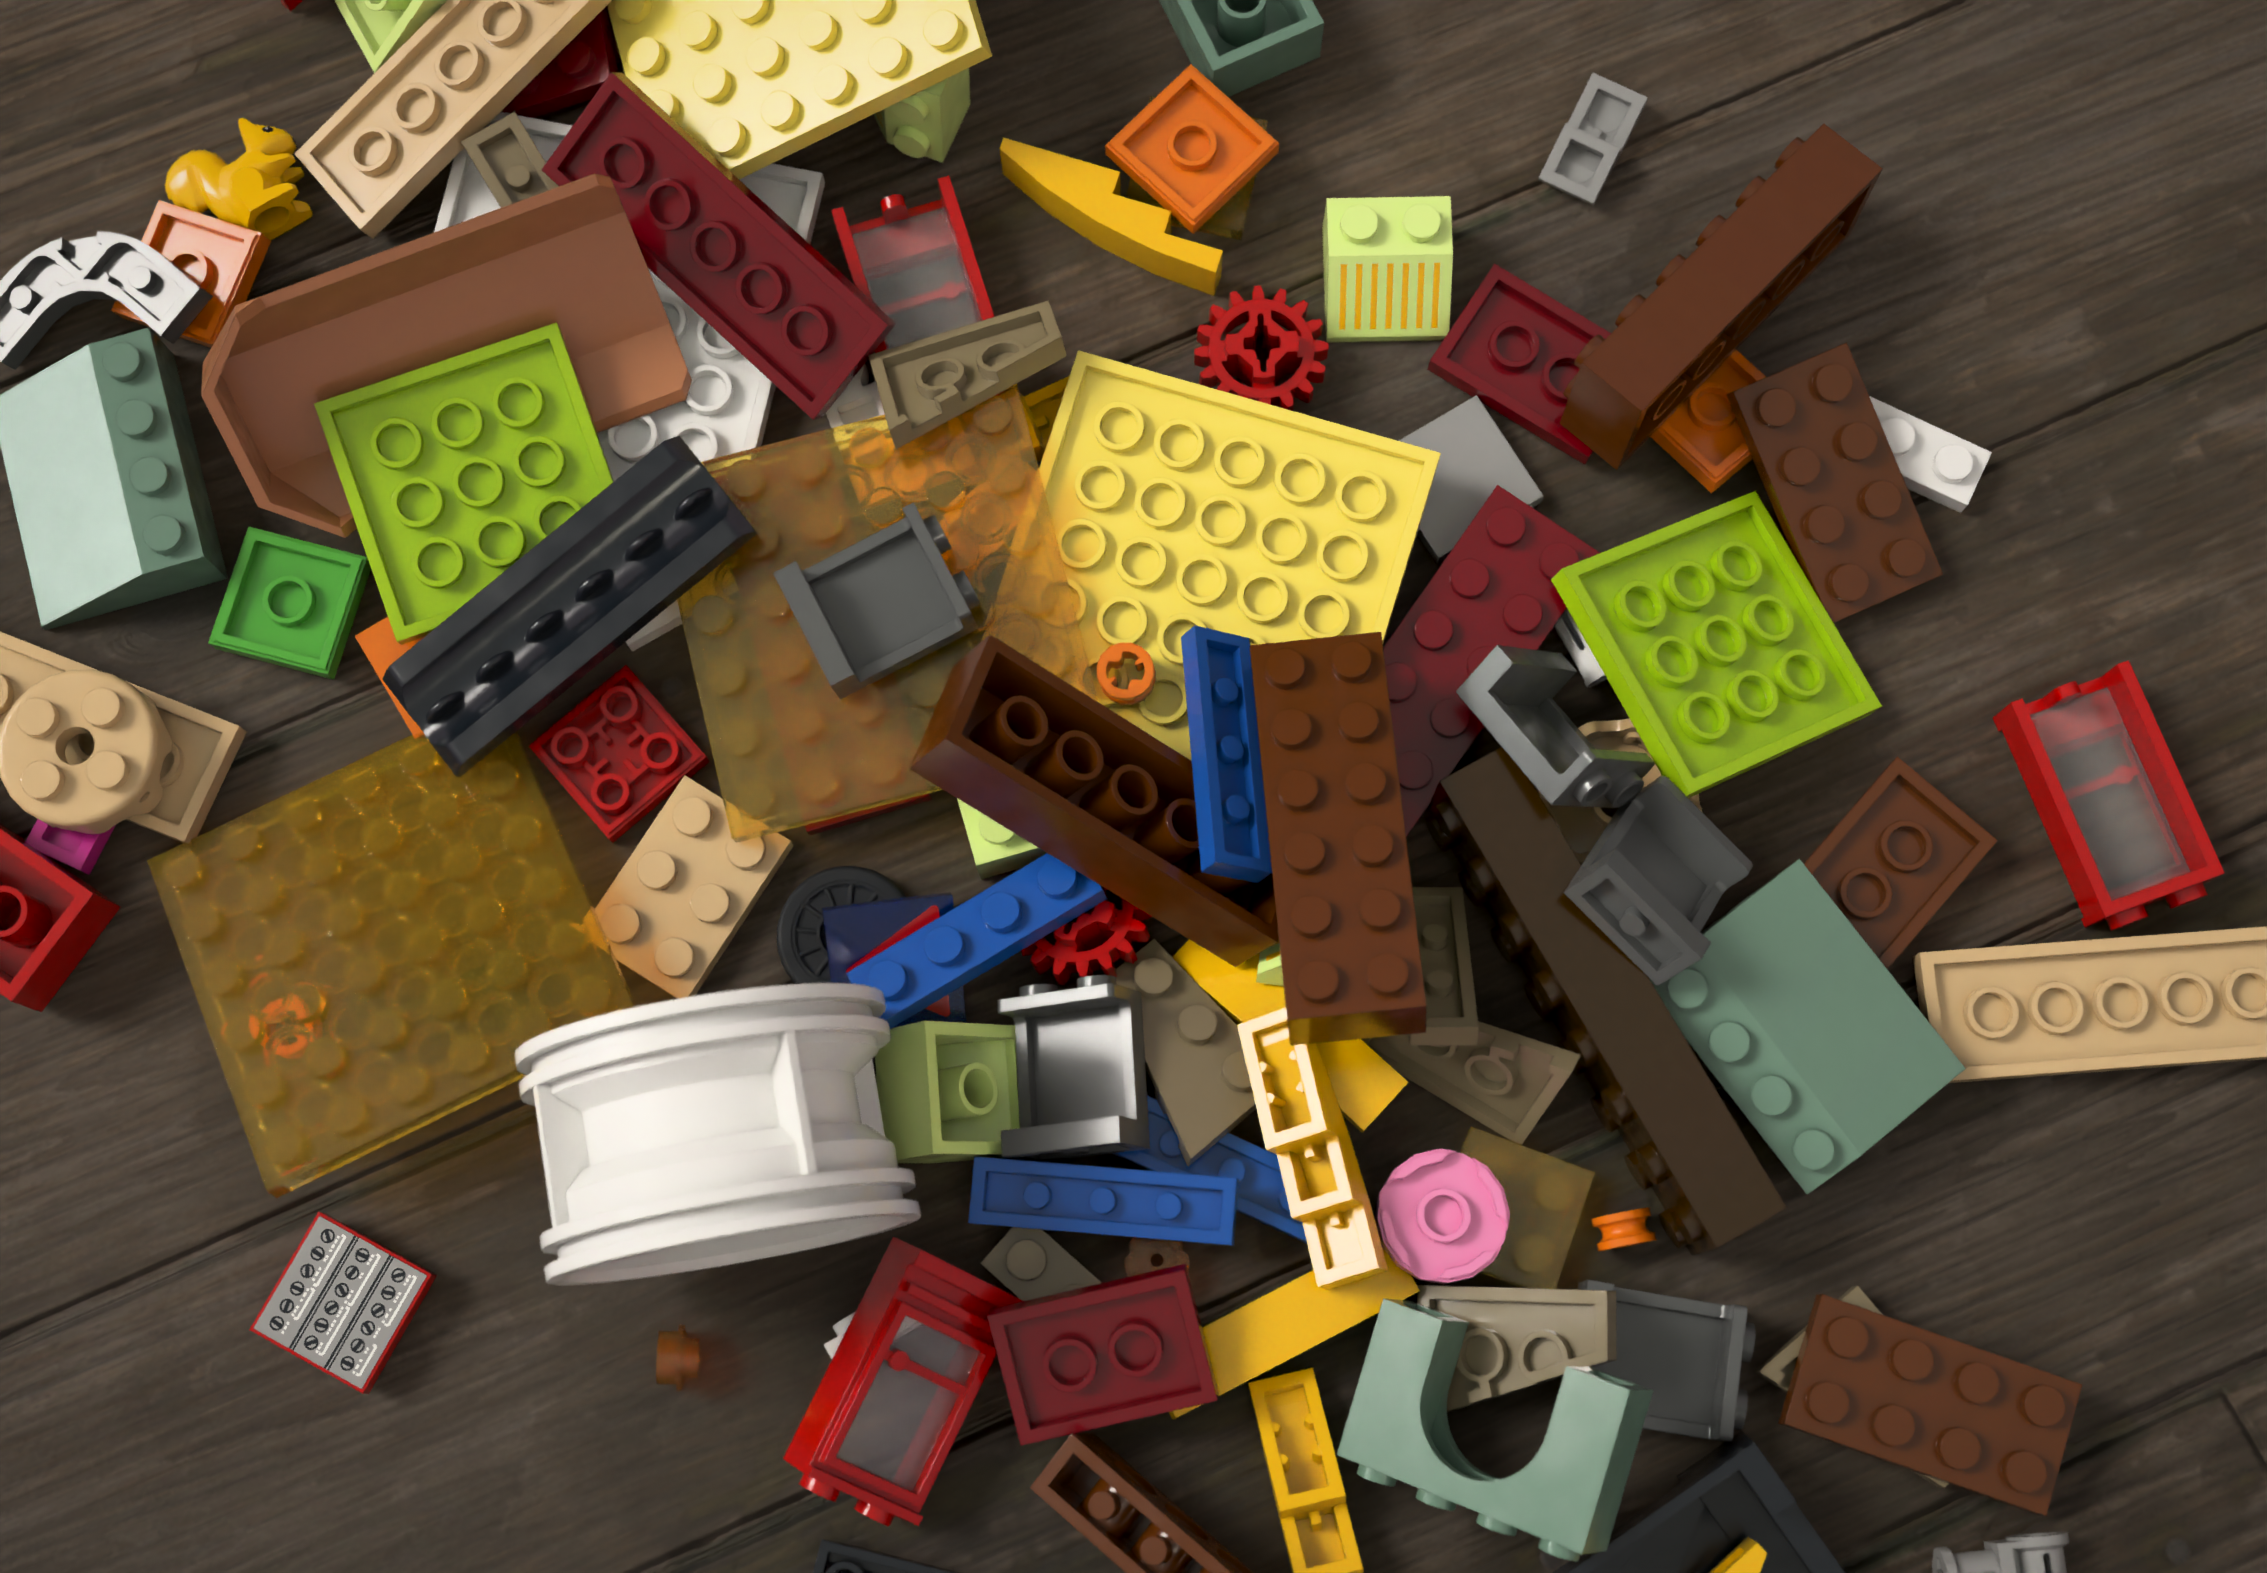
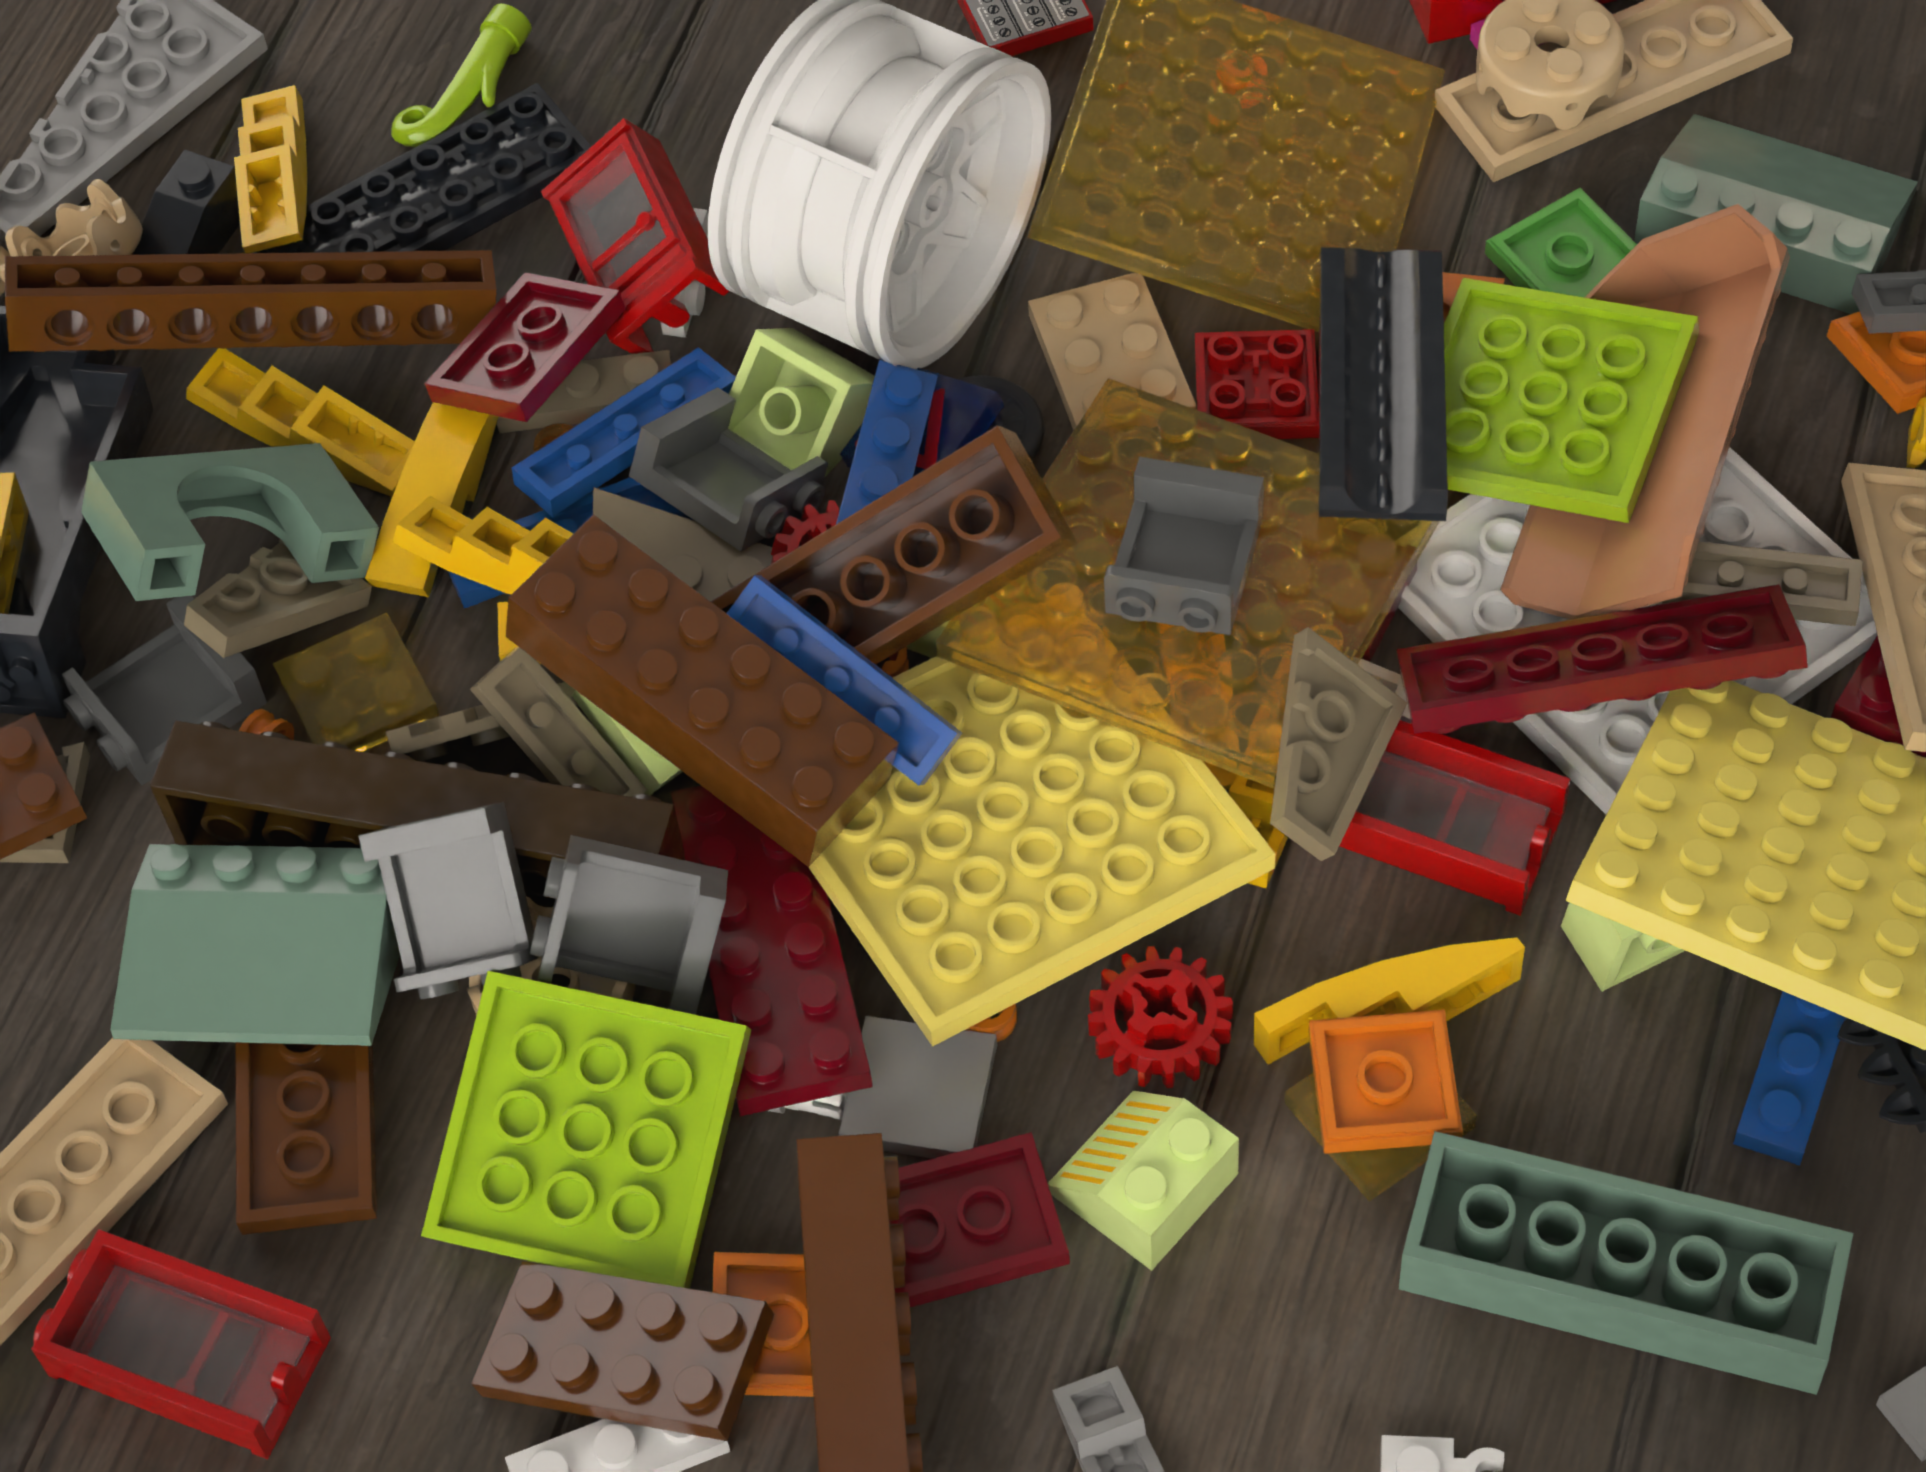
camera: 135 degrees right, 20 degrees down
(1114, 658) = (973, 710): orange bush -> none
(1442, 1216) = (394, 621): bright pink tile -> none

